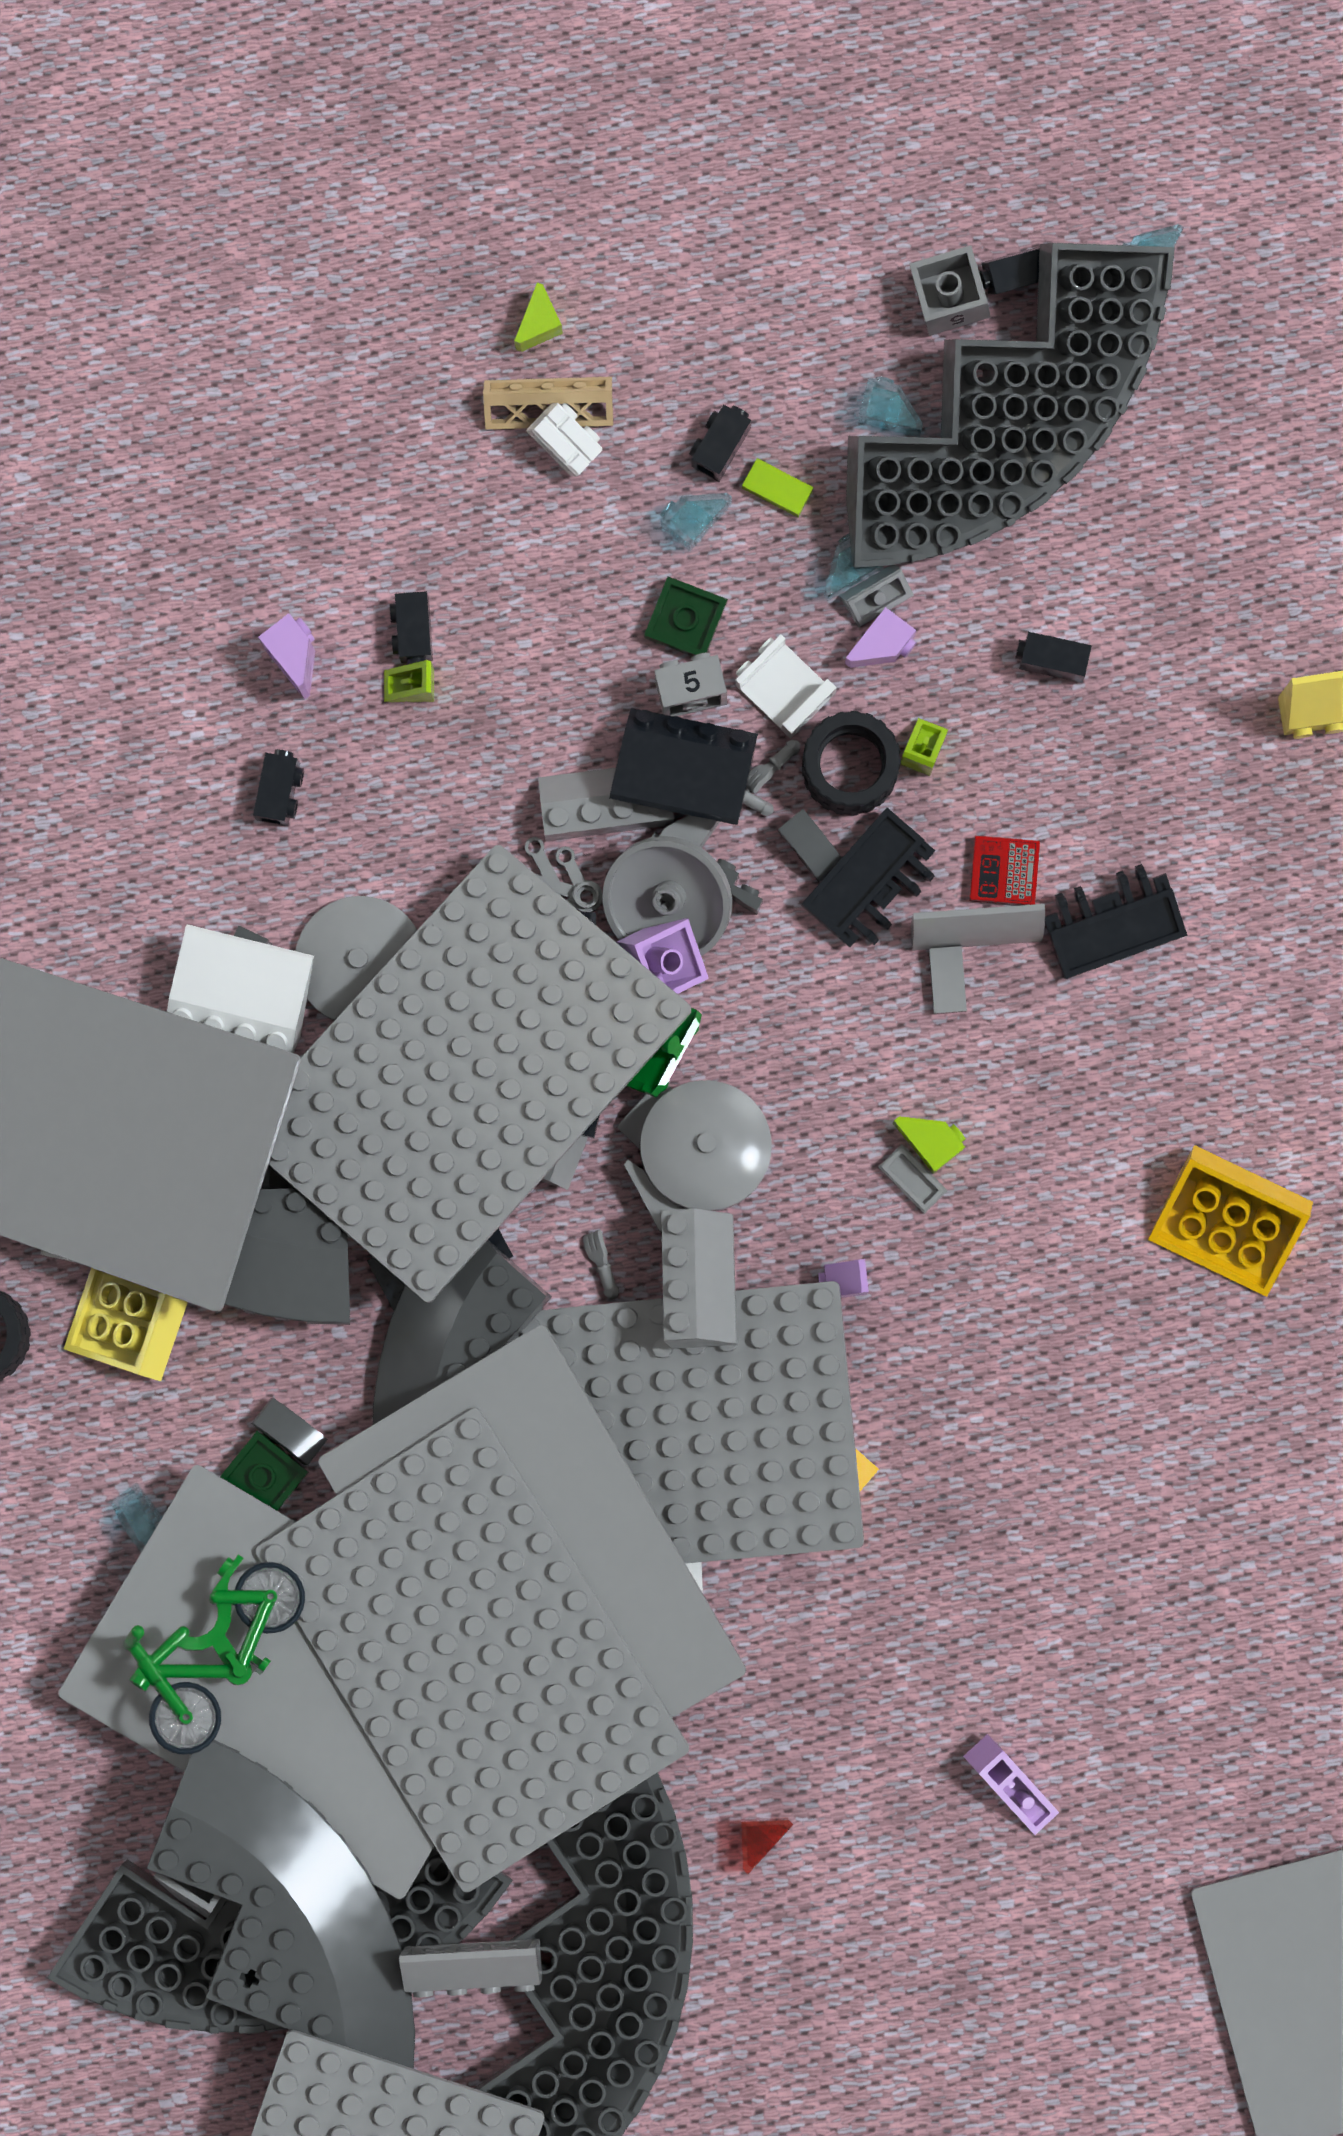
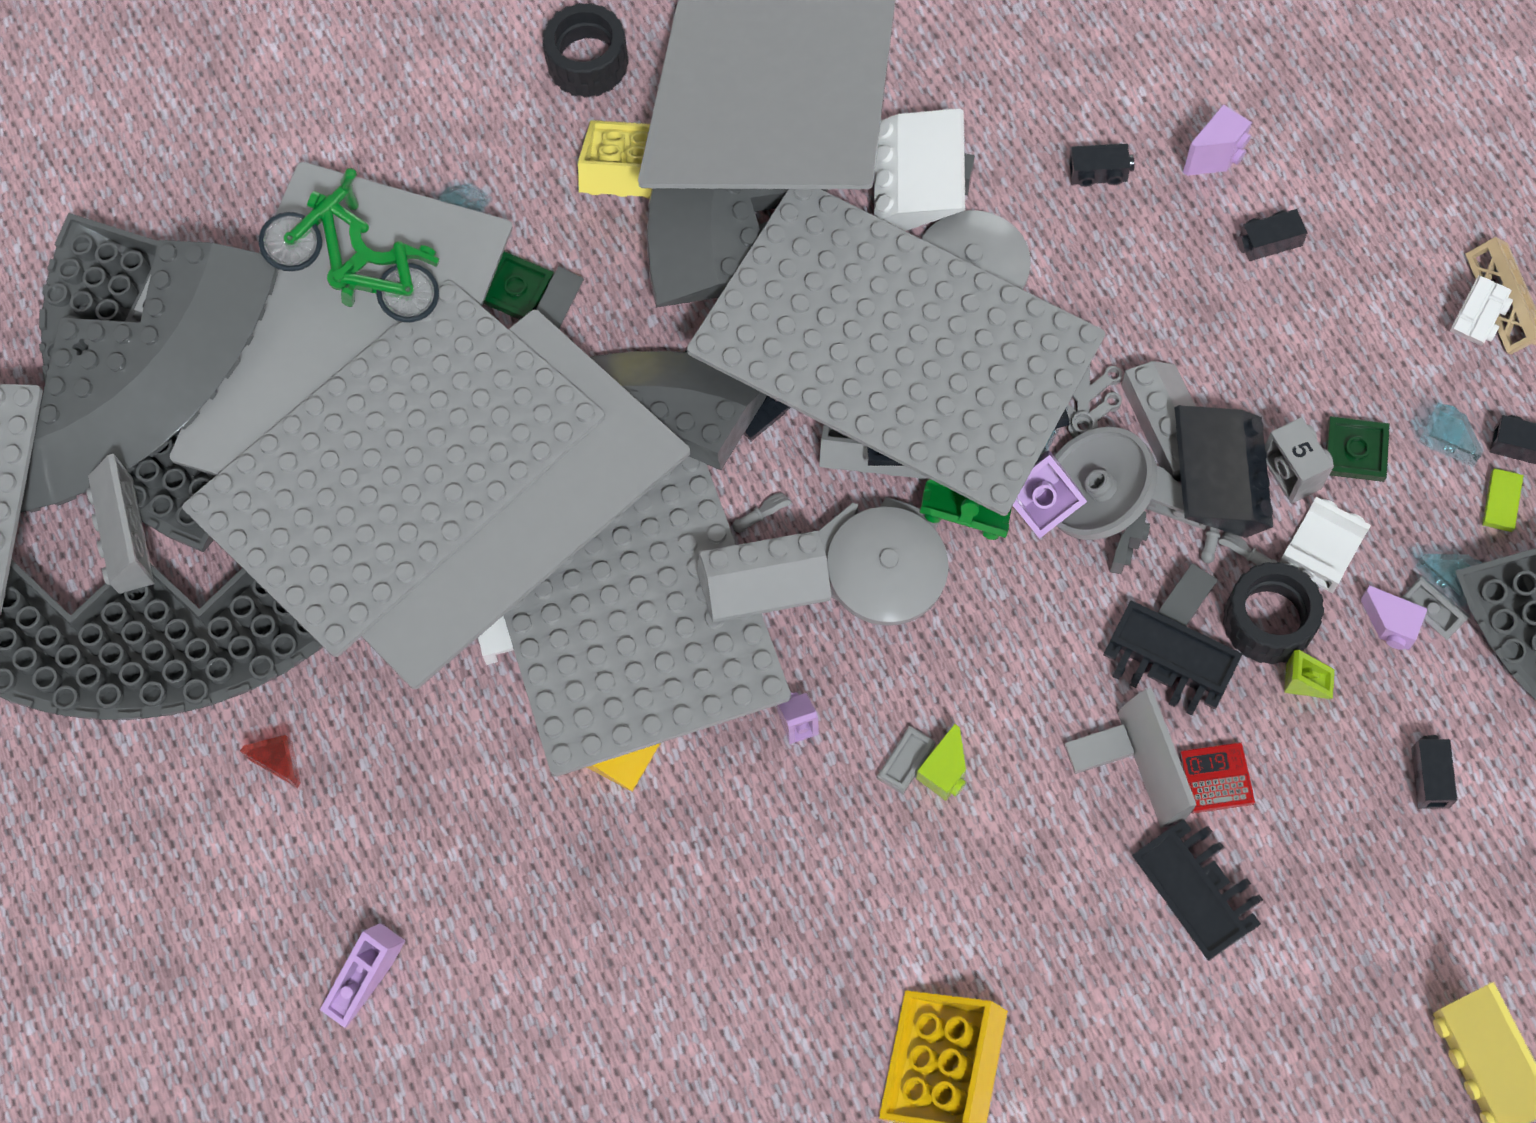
camera: 75 degrees right, 15 degrees down
(410, 683) = (1225, 246): lime slope -> none

